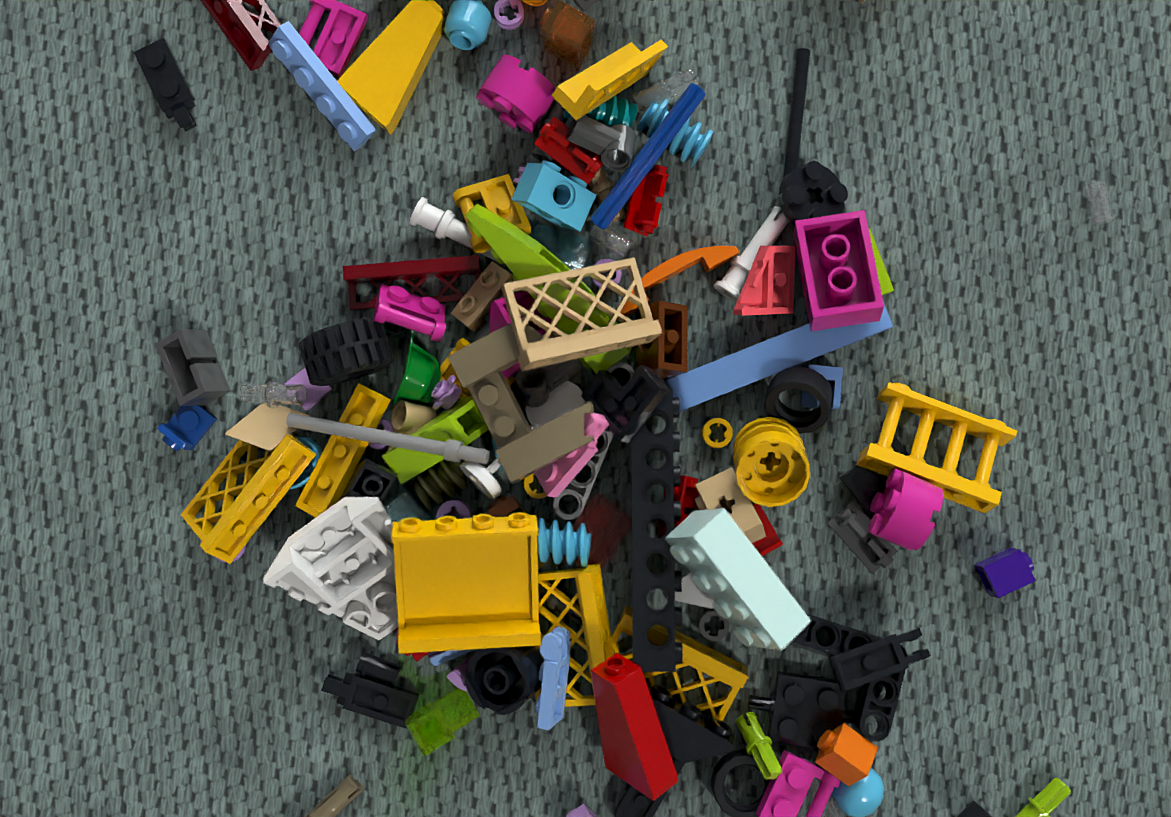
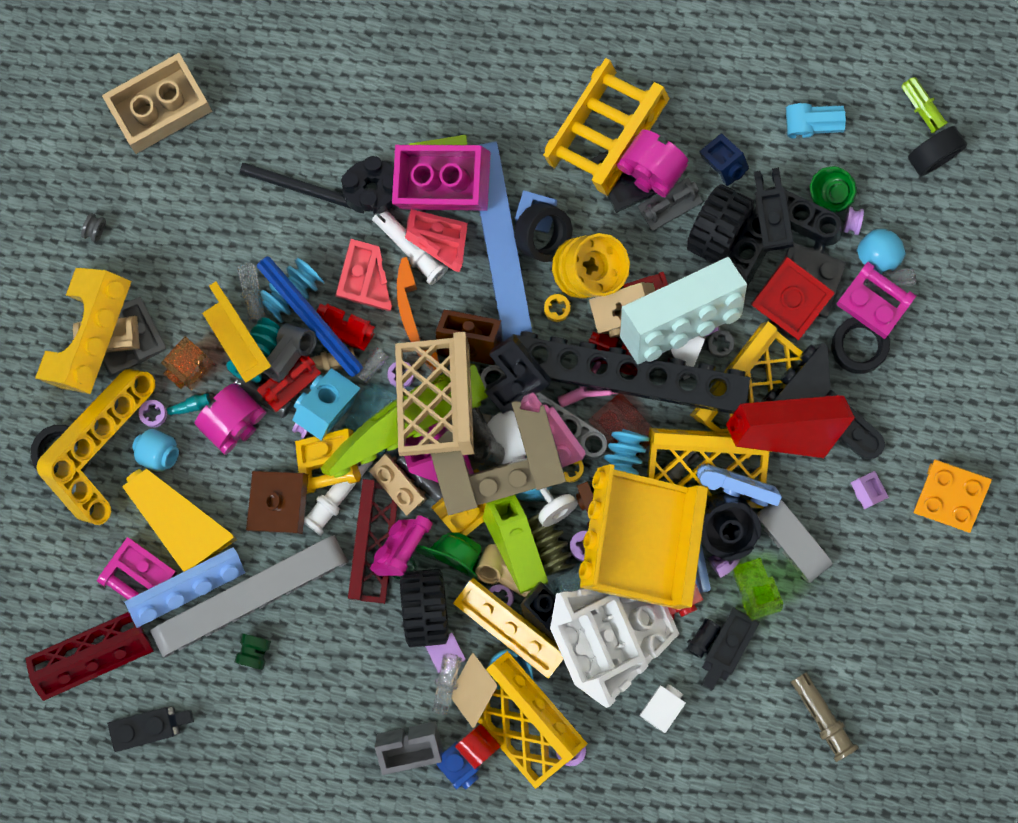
camera: 80 degrees left, 5 degrees down
(207, 442) = (477, 746): none -> red axle
(268, 176) = (252, 651): none -> dark green wheel
(291, 638) = (663, 707): none -> white brick
(328, 160) = (248, 595): none -> light grey beam
(435, 168) = (277, 502): none -> reddish brown plate
(445, 393) = (477, 530): lavender plate -> none
(450, 450) = (528, 527): light grey bar -> none
(505, 751) = (795, 540): none -> light grey beam
(527, 52) = (191, 404): none -> teal piece
(624, 478) = (581, 392): none -> bright pink plant
(707, 210) = (364, 277): none -> coral wing
(759, 746) = (830, 324): lime axle -> none
(780, 699) = (792, 298): none -> red plate
(845, 754) = (847, 253): orange brick -> none
(849, 600) = (719, 224): none -> black tyre
(888, 751) = (853, 220): none -> lavender bush
(925, 726) = (840, 184): none -> green hair
(927, 590) = (725, 159): none -> dark blue bracket
(993, 677) = (809, 120): none -> medium azure piece
(1005, 572) = (722, 91): dark purple brick -> none

